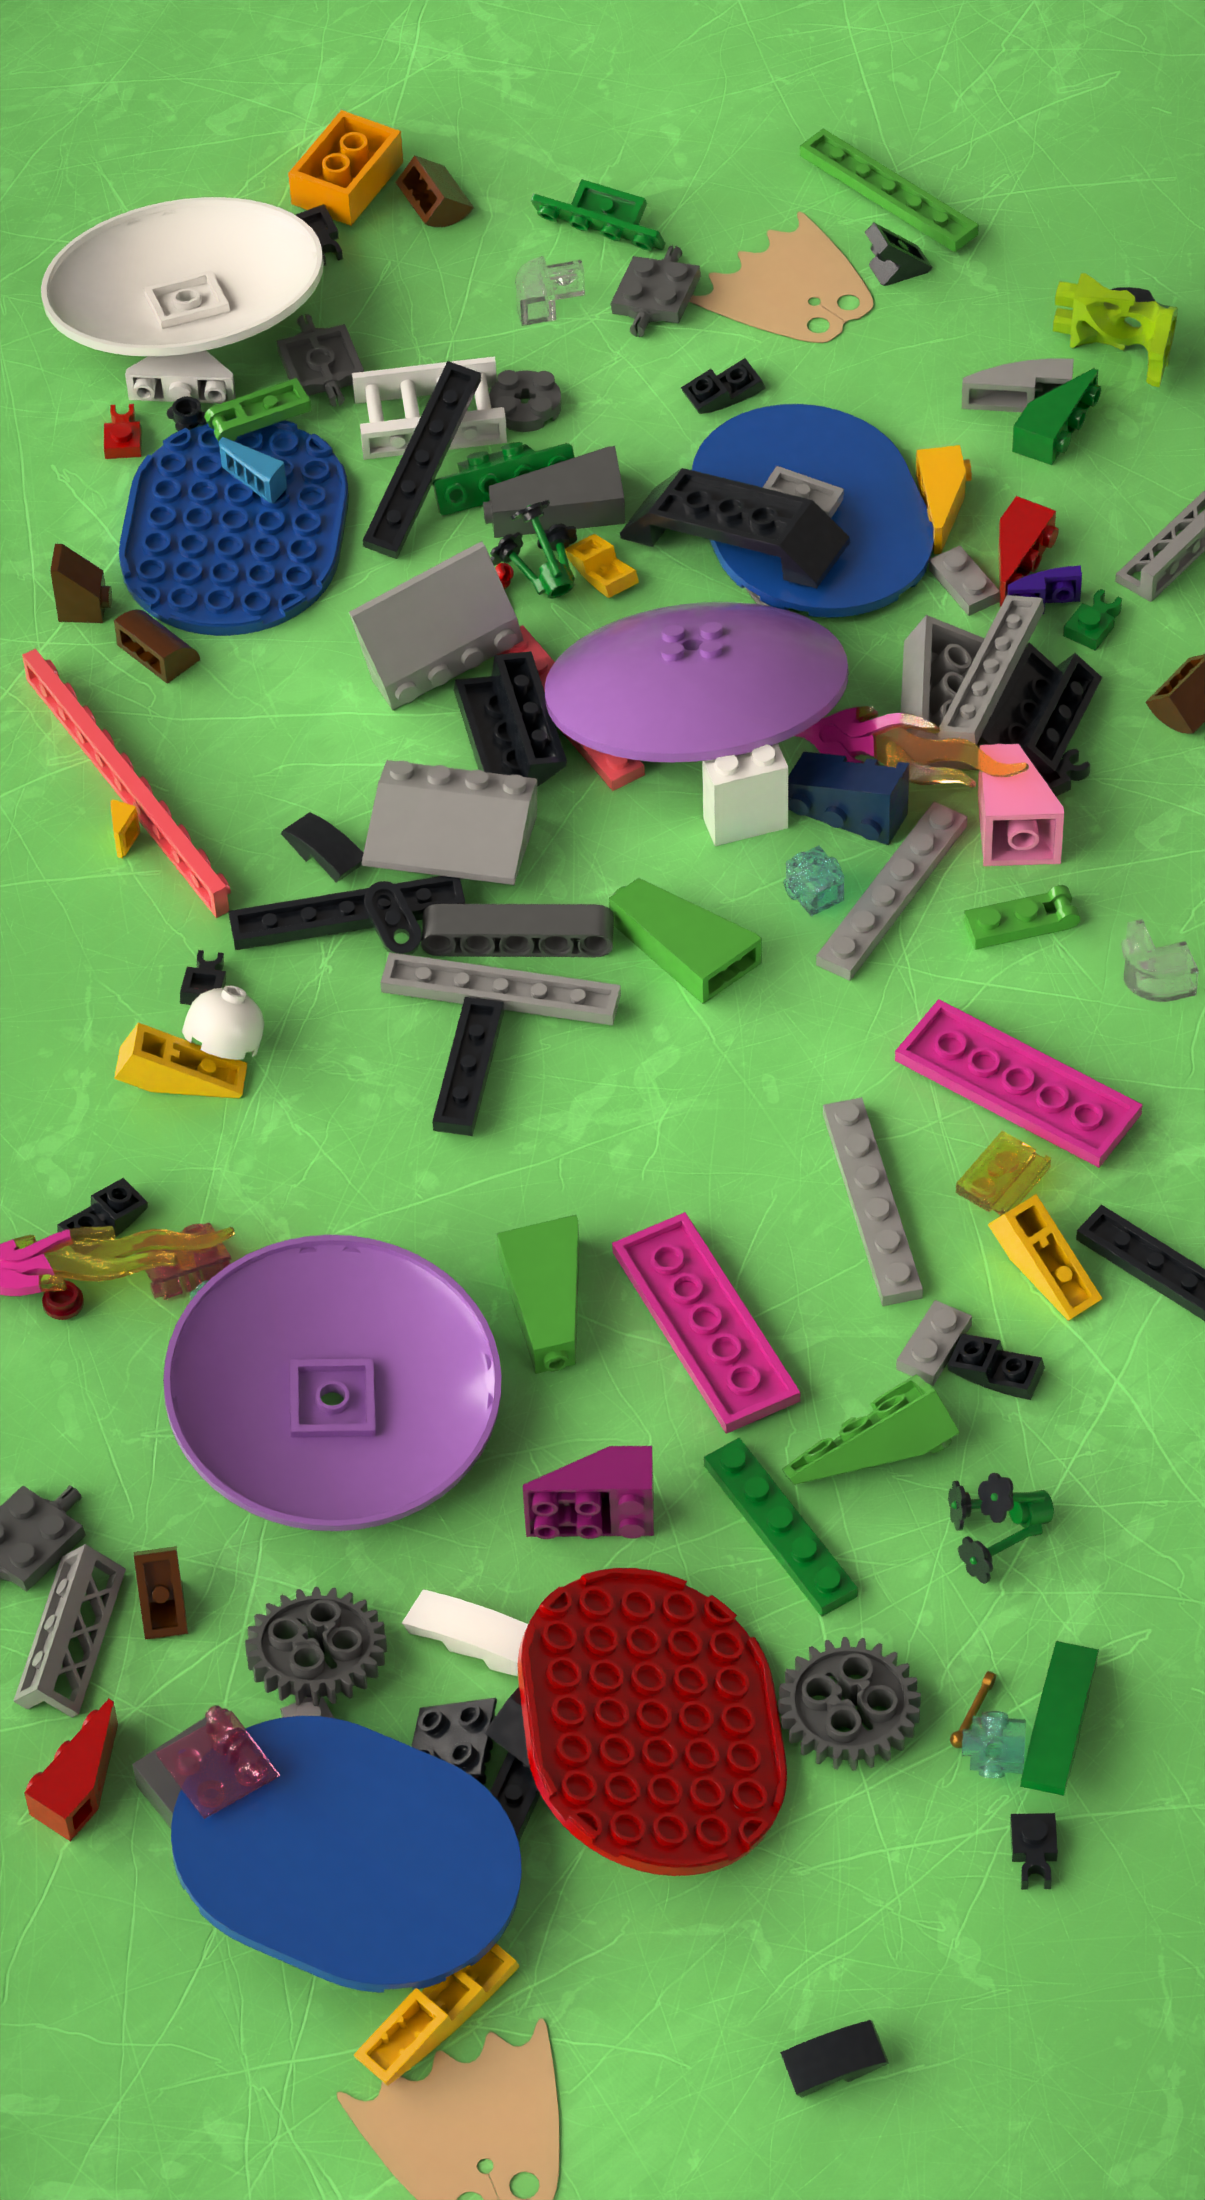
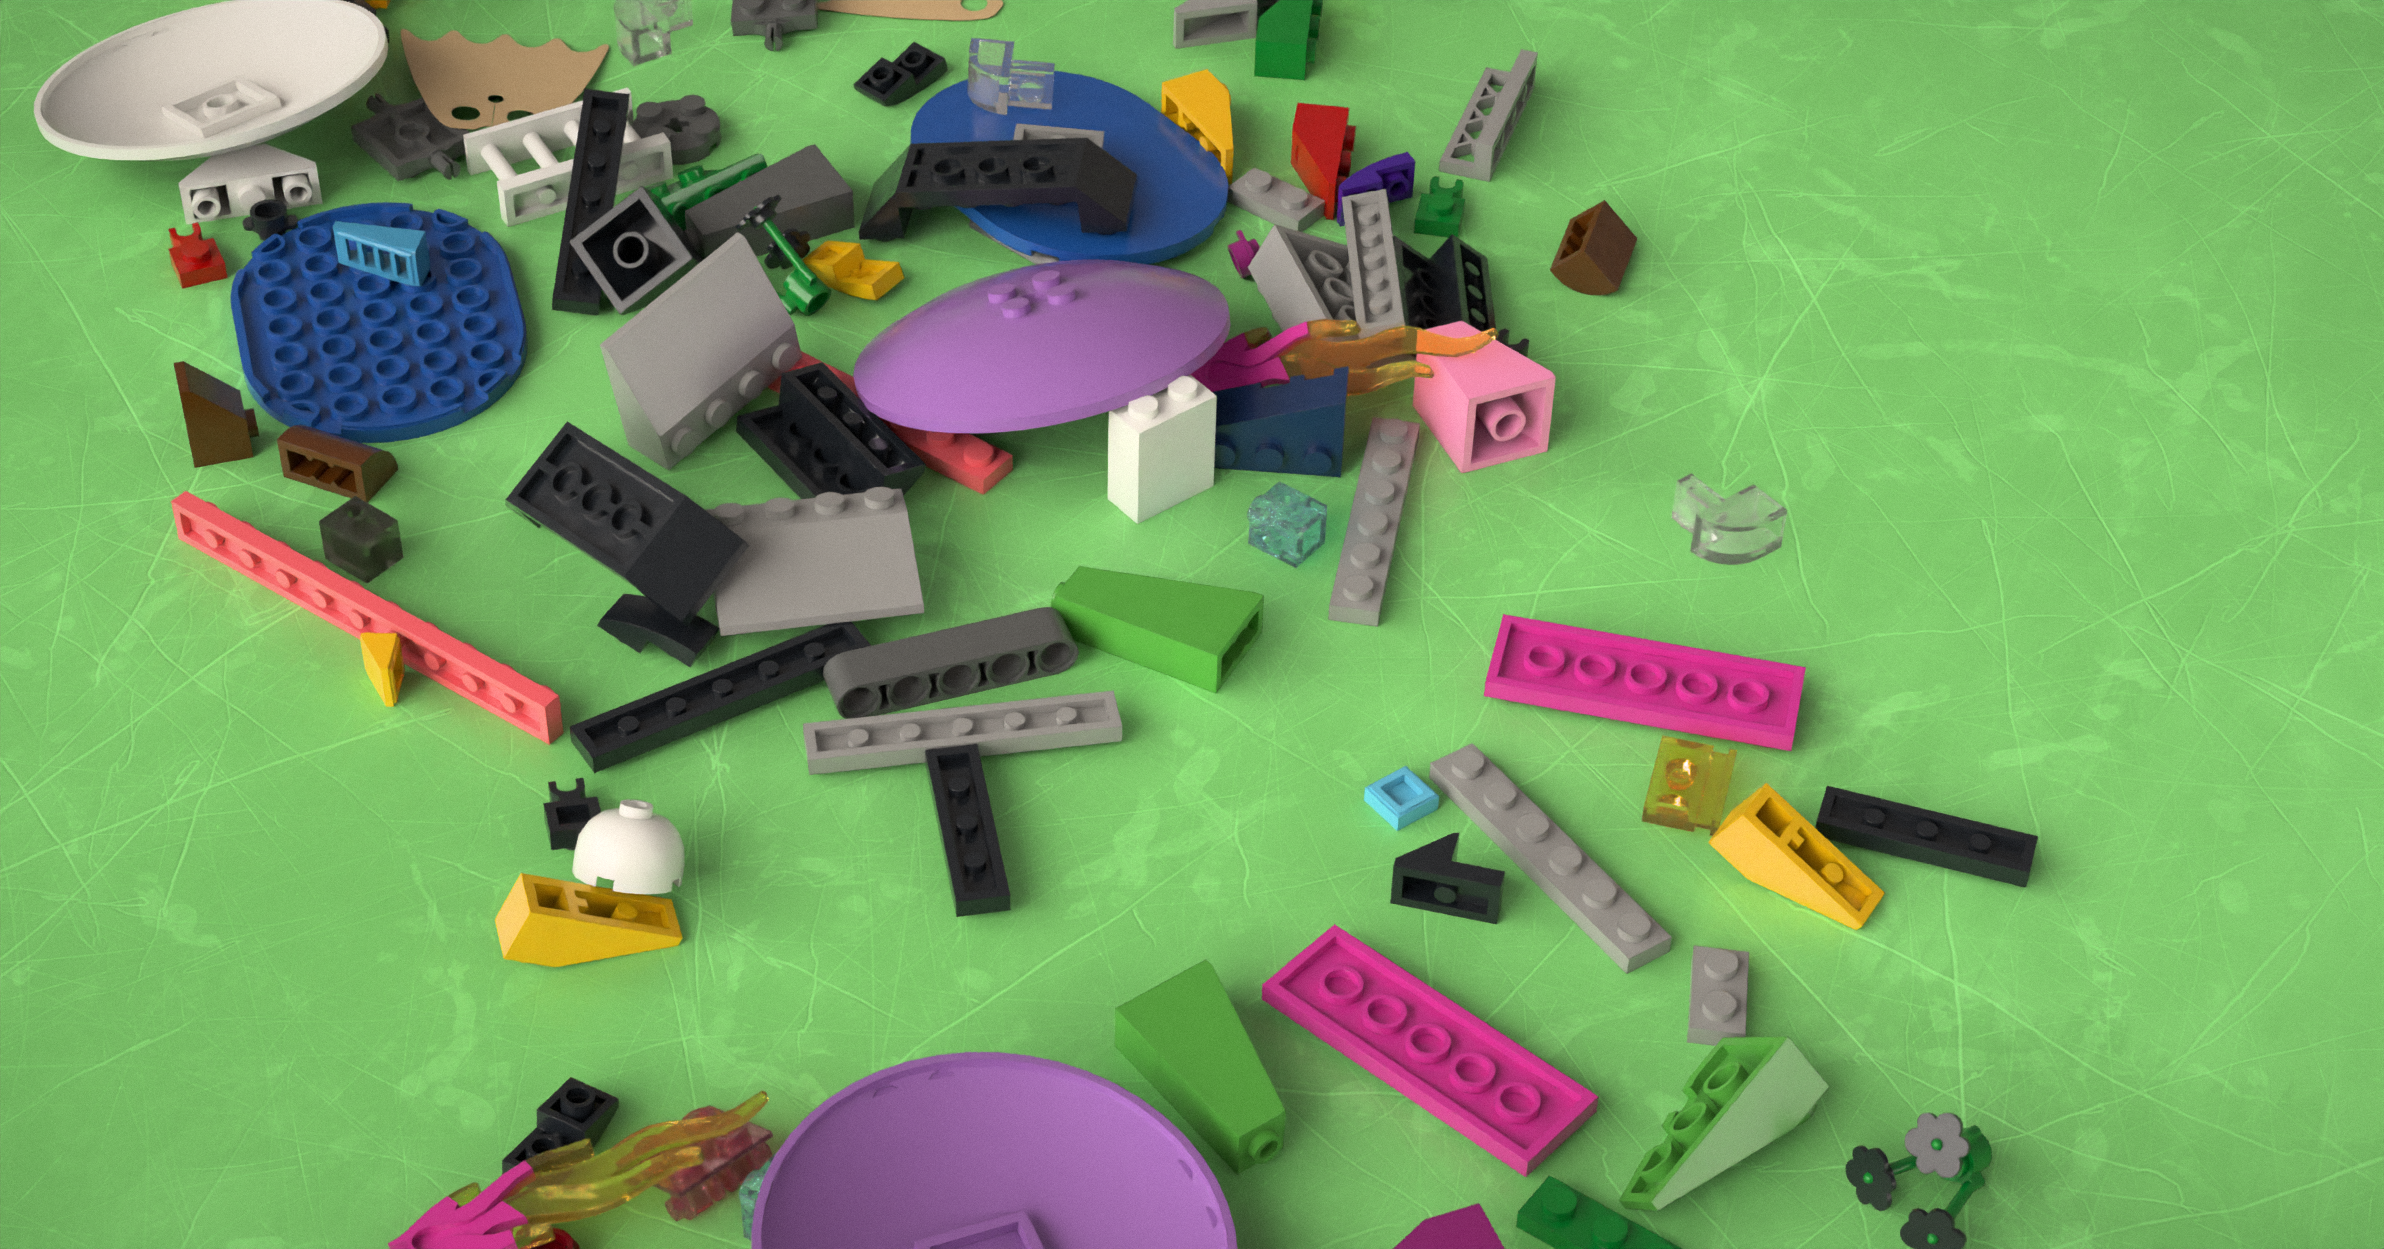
camera: 25 degrees left, 10 degrees down
(146, 717) = (361, 539): none -> clear smoke brick
(258, 409) = (361, 193): bright green plate -> none
(323, 759) = (627, 522): none -> black slope
(392, 920) = (795, 683): black plate -> none
(429, 319) = (466, 73): none -> tan piece
(439, 516) = (636, 251): none -> slope
(780, 1199) = (1438, 883): none -> black slope
(789, 419) = (1001, 81): none -> clear brick
(791, 1126) = (1401, 798): none -> medium azure tile
(906, 625) = (1242, 253): none -> magenta plate
(987, 1365) = (1822, 1007): black slope -> none
(1021, 918) = (1540, 513): bright green plate -> none

